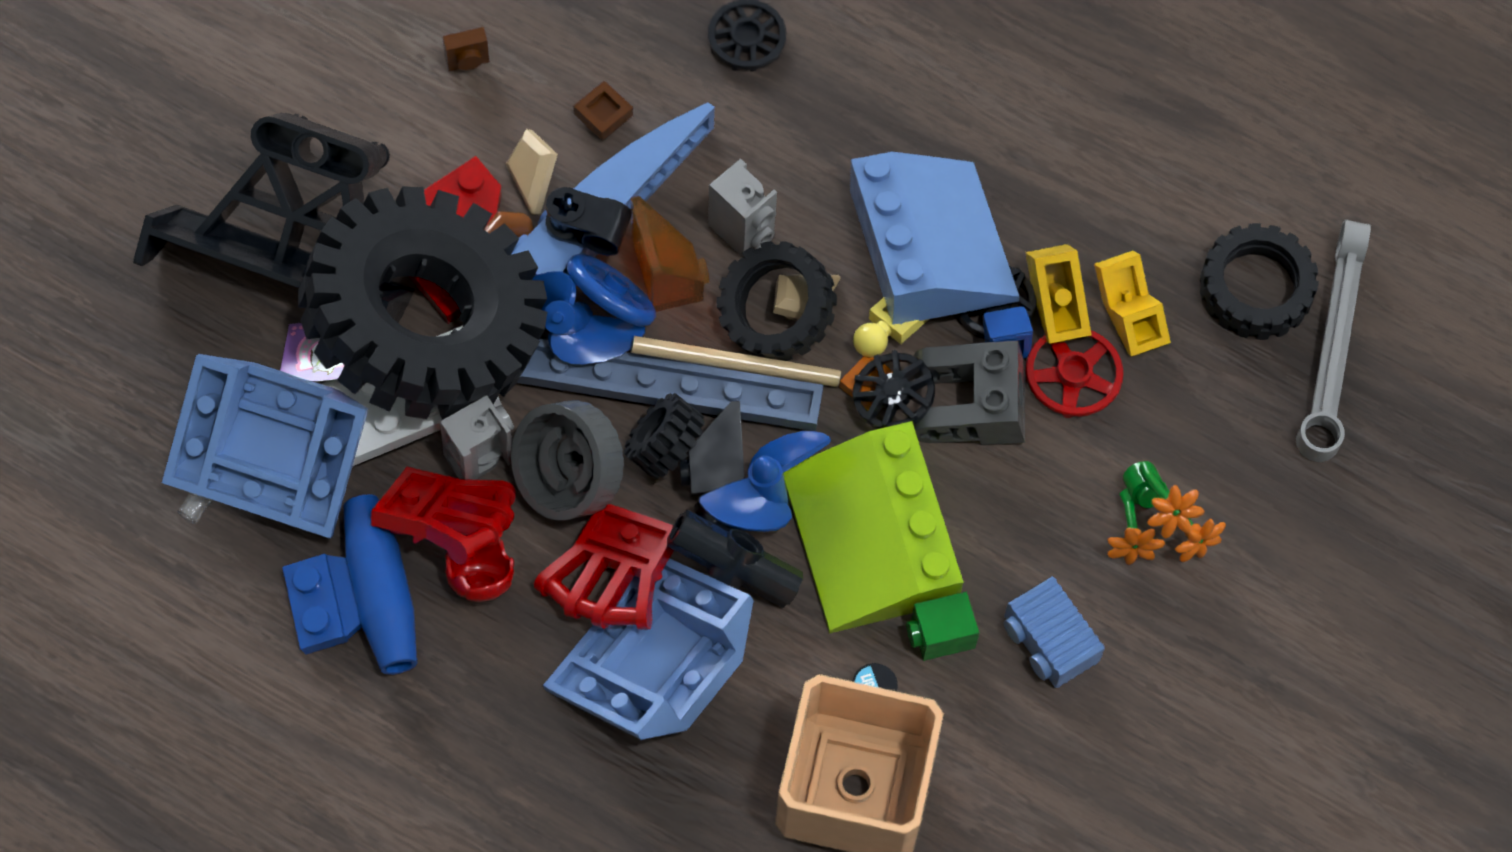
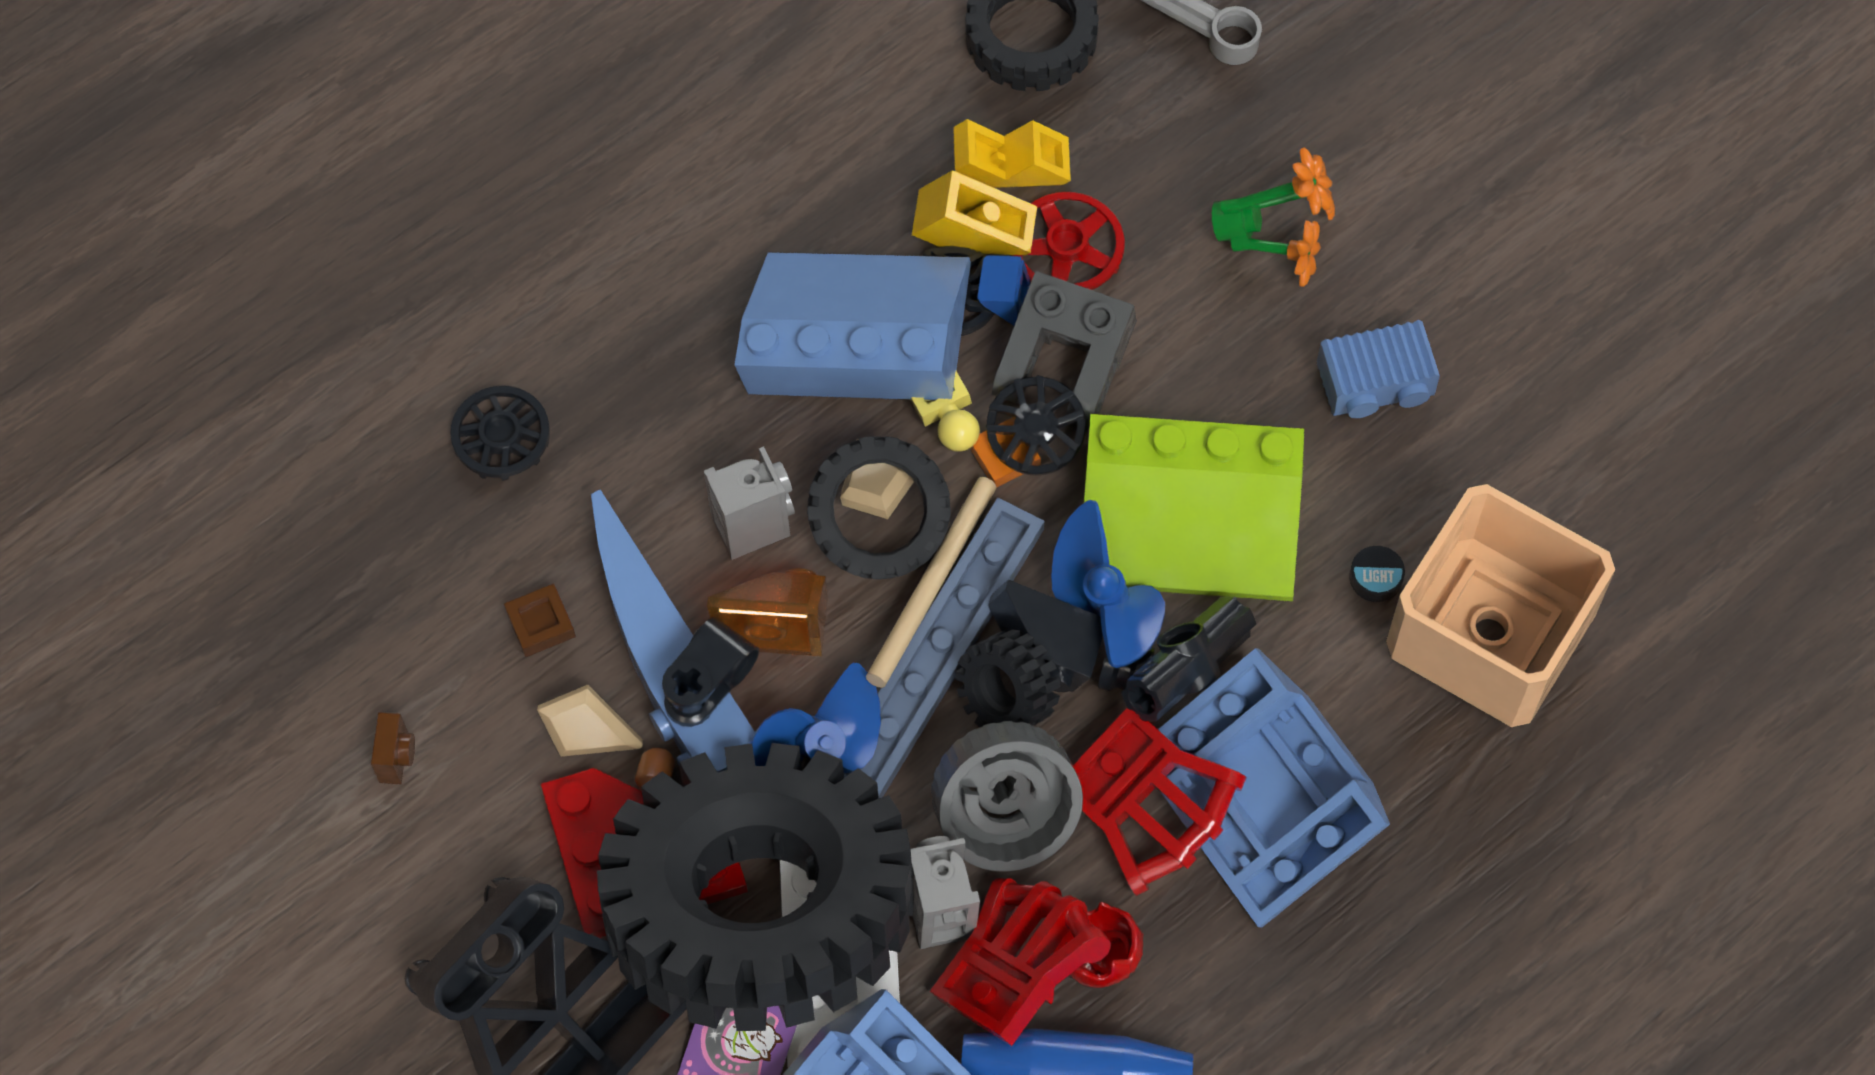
camera: 65 degrees left, 0 degrees up
(611, 290) = (797, 680): blue plate -> none
(943, 626) = (1334, 475): green brick -> none

